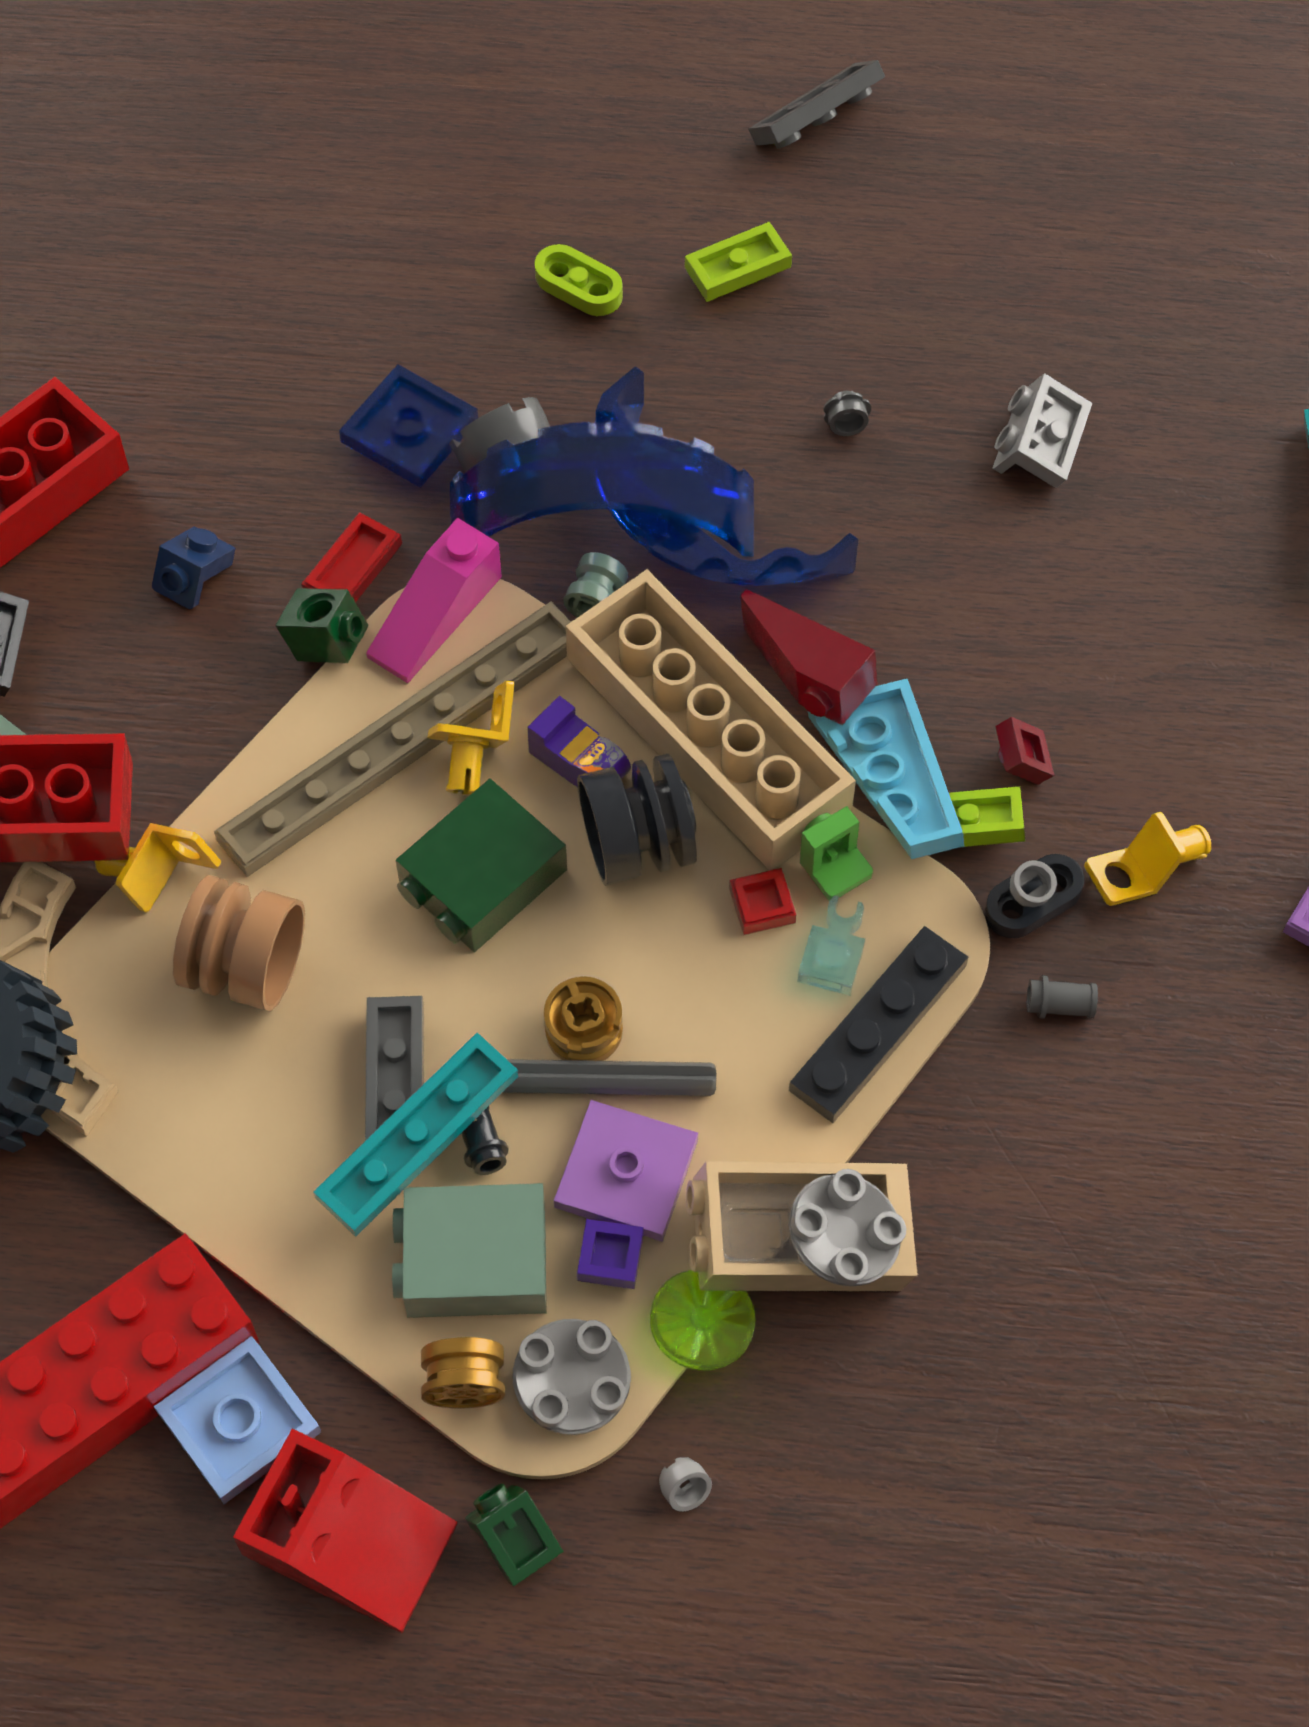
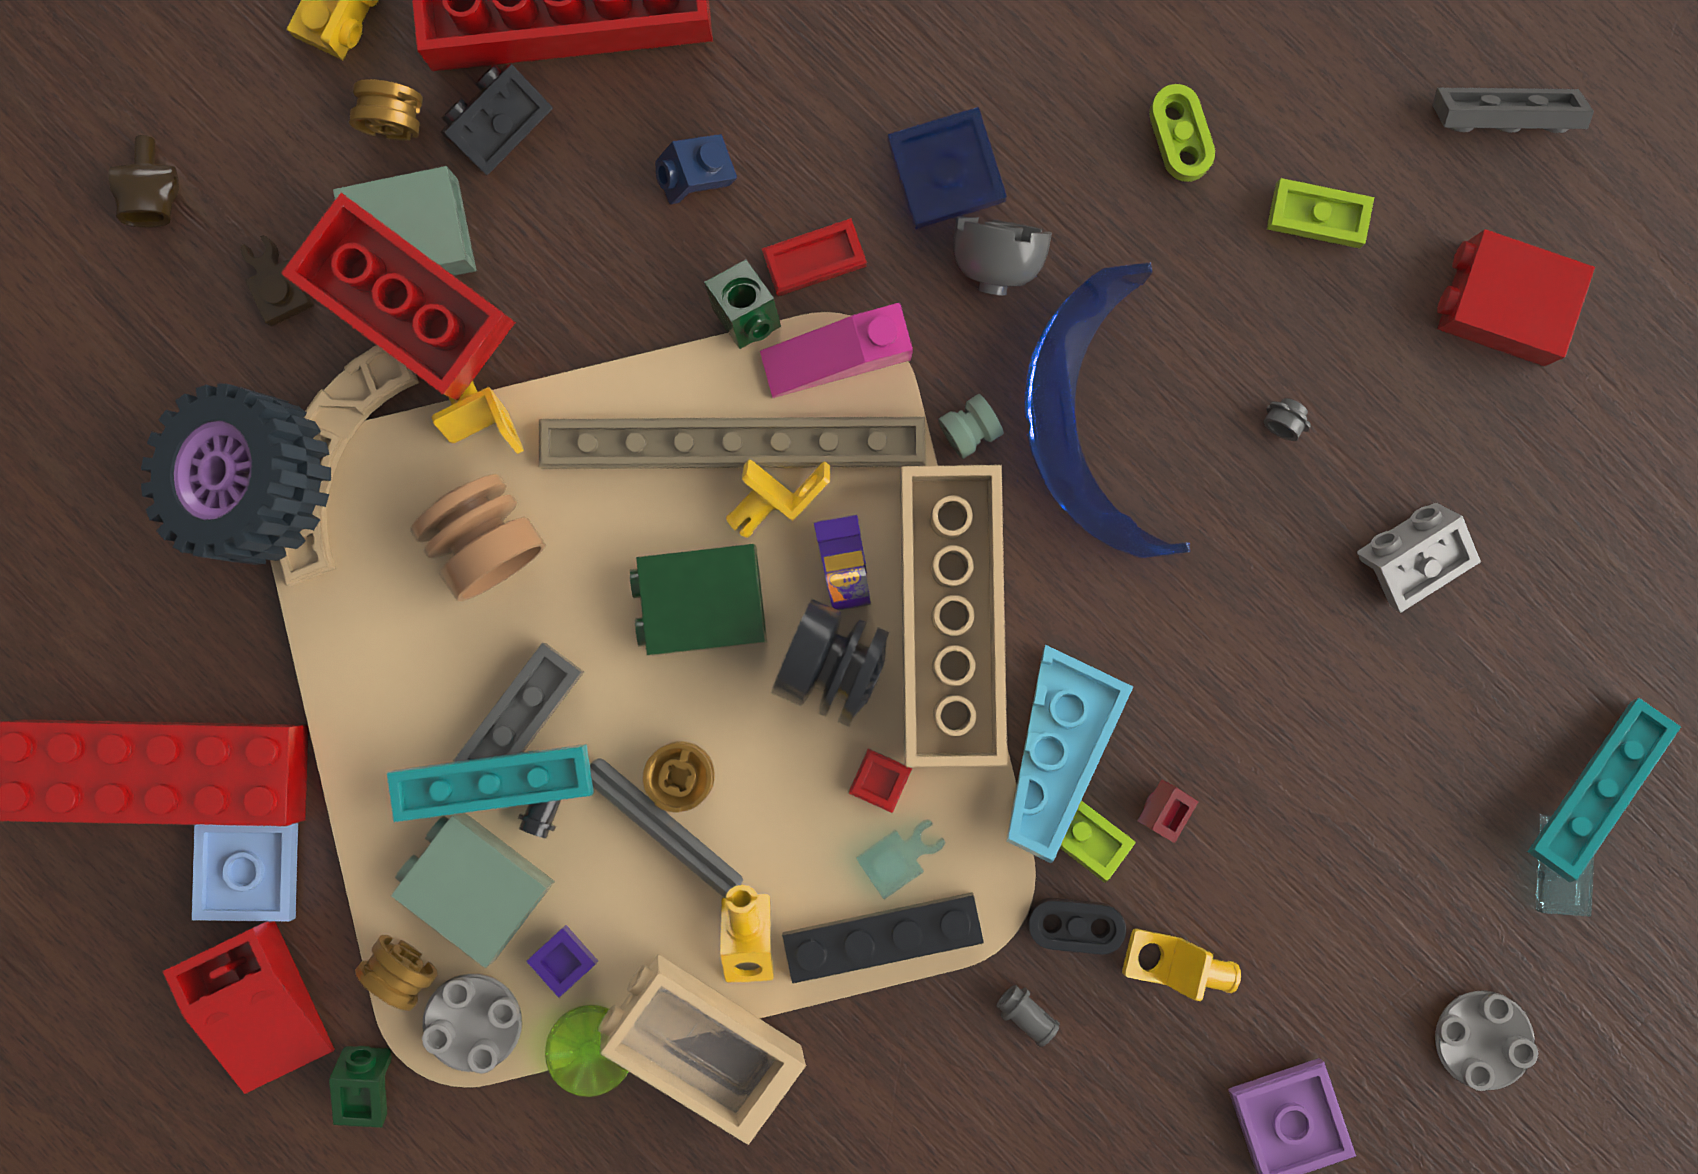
camera: 40 degrees right, 25 degrees up
(606, 469) = (1032, 359): clear blue windscreen -> none
(626, 1169) = (623, 906): medium lavender plate -> none
(691, 1494) = (493, 1142): light grey hinge -> none
(757, 1100) = (746, 934): none -> yellow bracket
(814, 662) = (1072, 628): dark red slope -> none
(832, 854) = (954, 796): bright green bracket -> none
(845, 1229) = (718, 1088): light grey dish -> none
(940, 217) = (1514, 297): none -> red brick
(1026, 873) = (1073, 939): light grey hinge -> none

